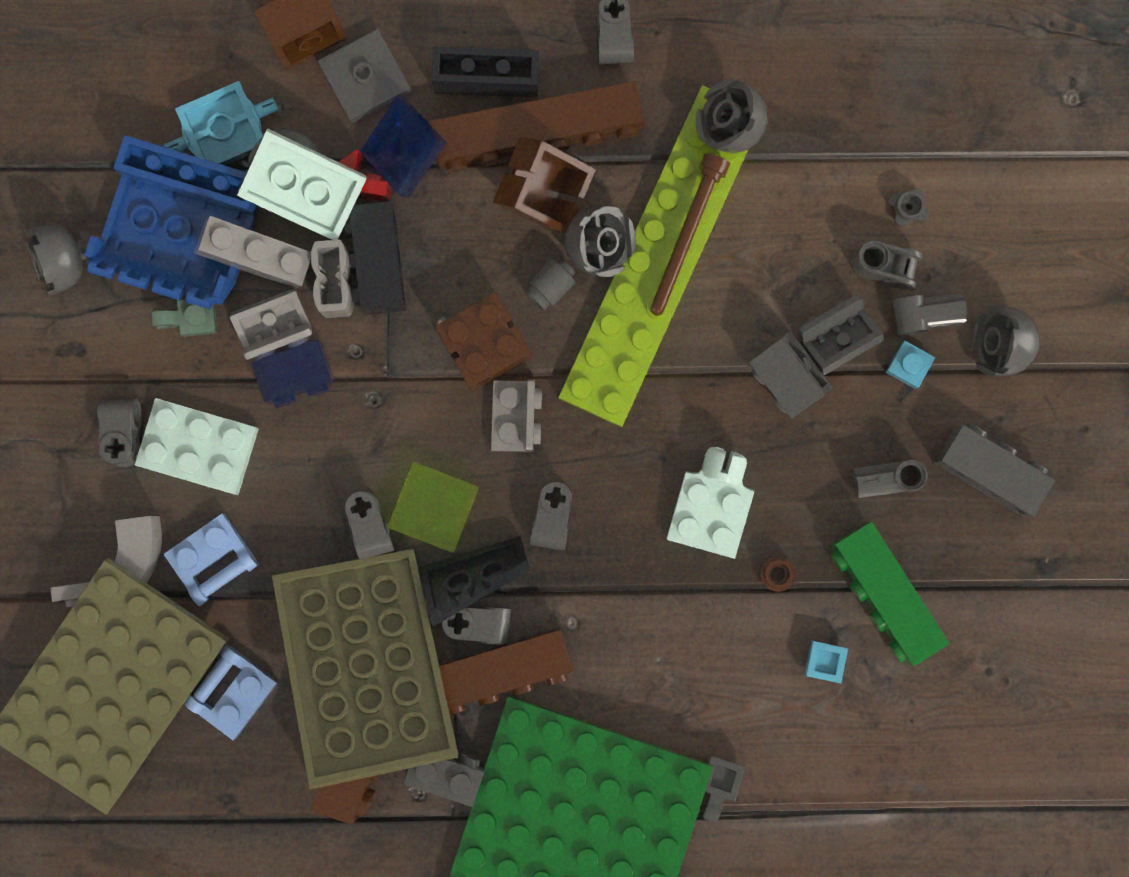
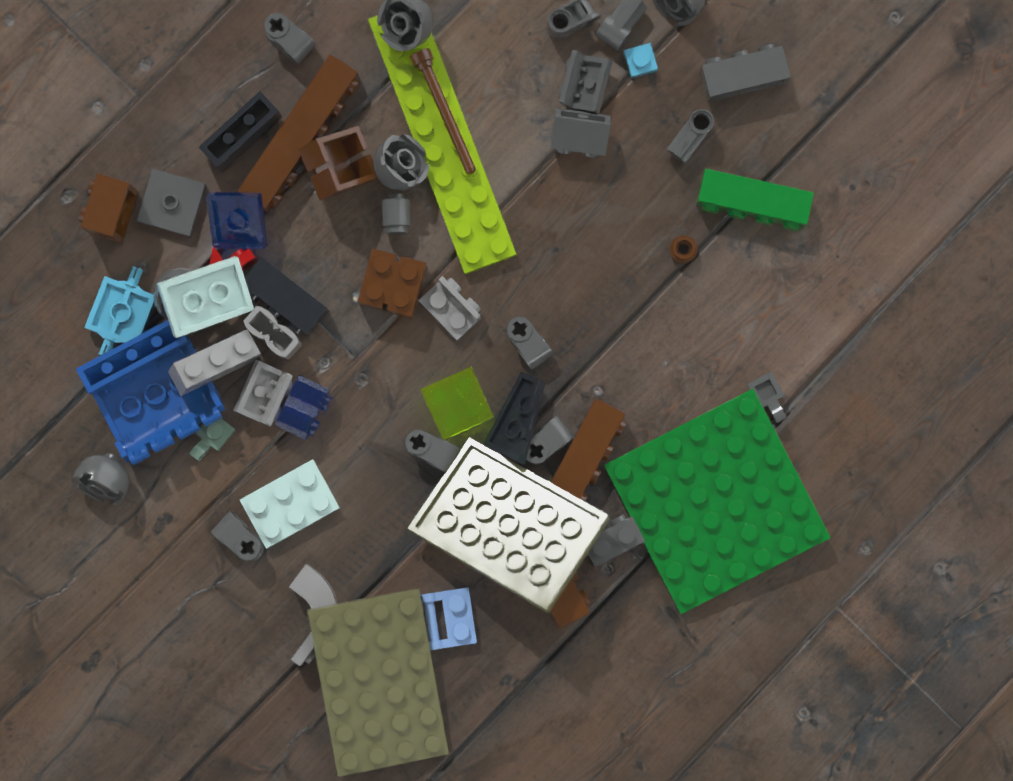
camera: 45 degrees left, 0 degrees up
(205, 549) = (353, 555): light blue plate -> none
(713, 505) = (610, 247): light aqua plate -> none
(826, 661) = (758, 270): medium azure plate -> none

